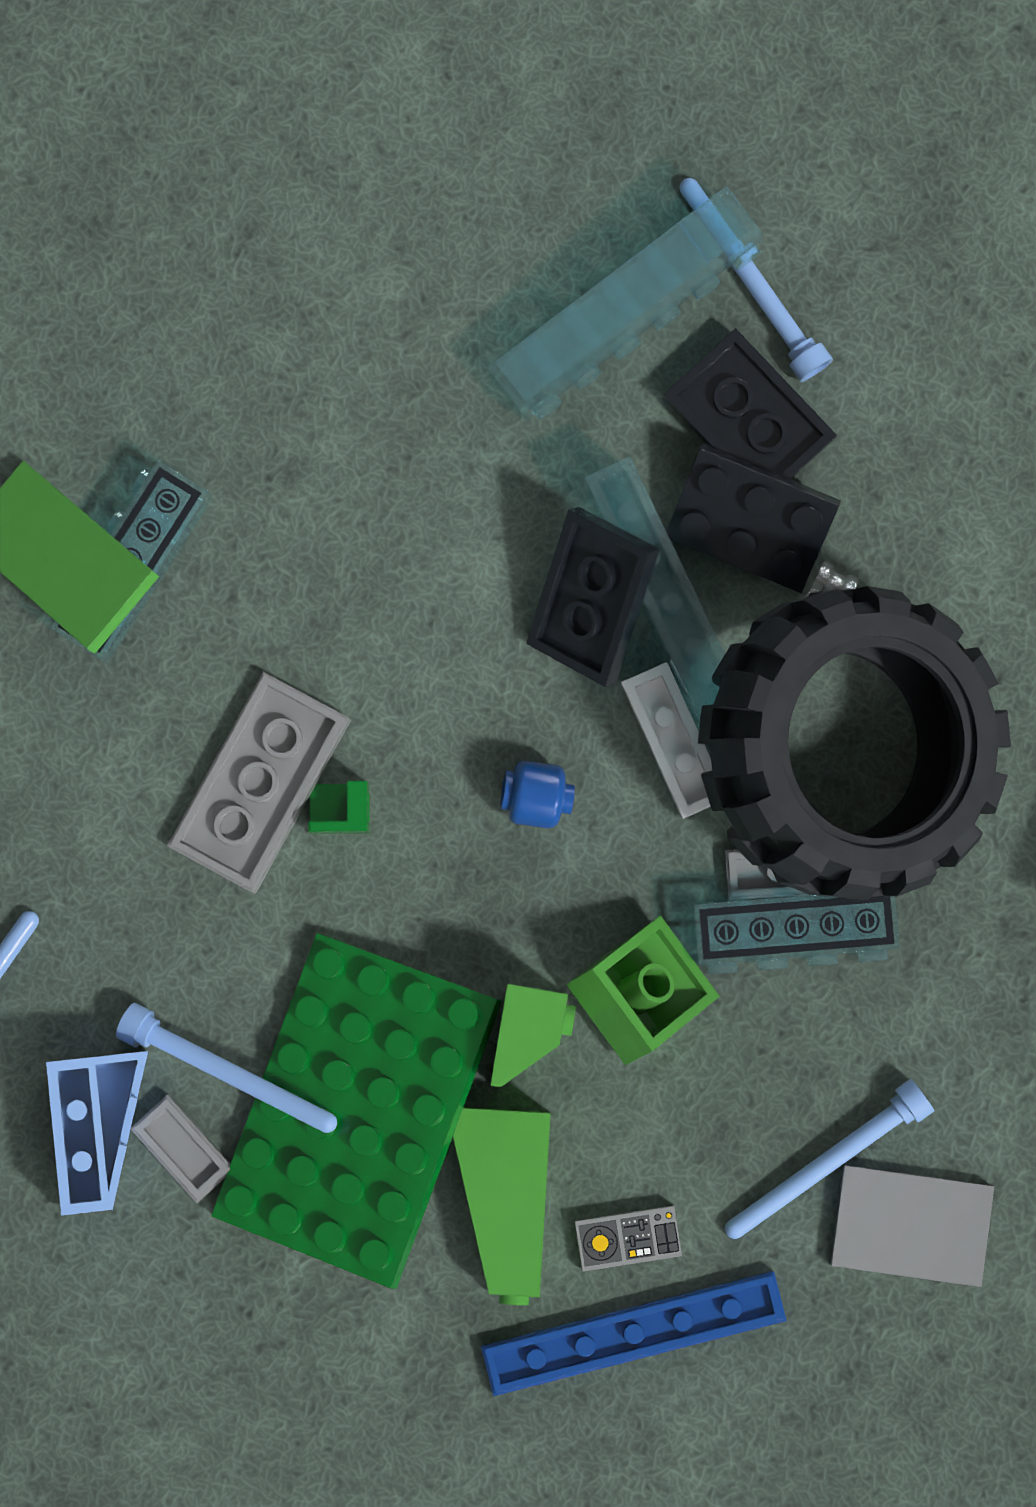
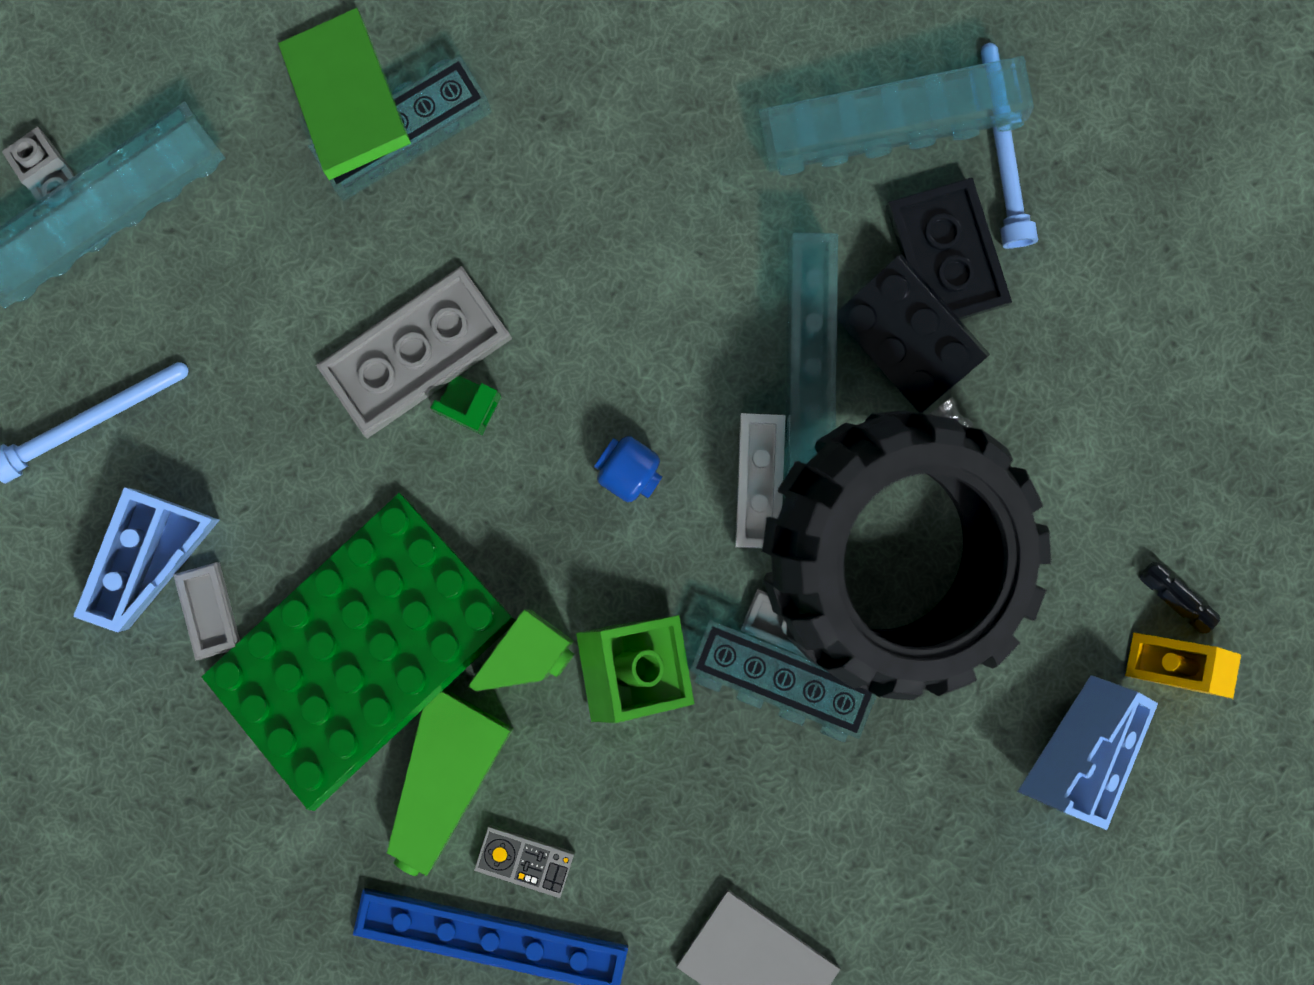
camera: 25 degrees right, 0 degrees up
(141, 1028) = (222, 498): light blue piece -> none
(592, 596) = (752, 331): black plate -> none
(905, 1107) = (801, 868): light blue piece -> none

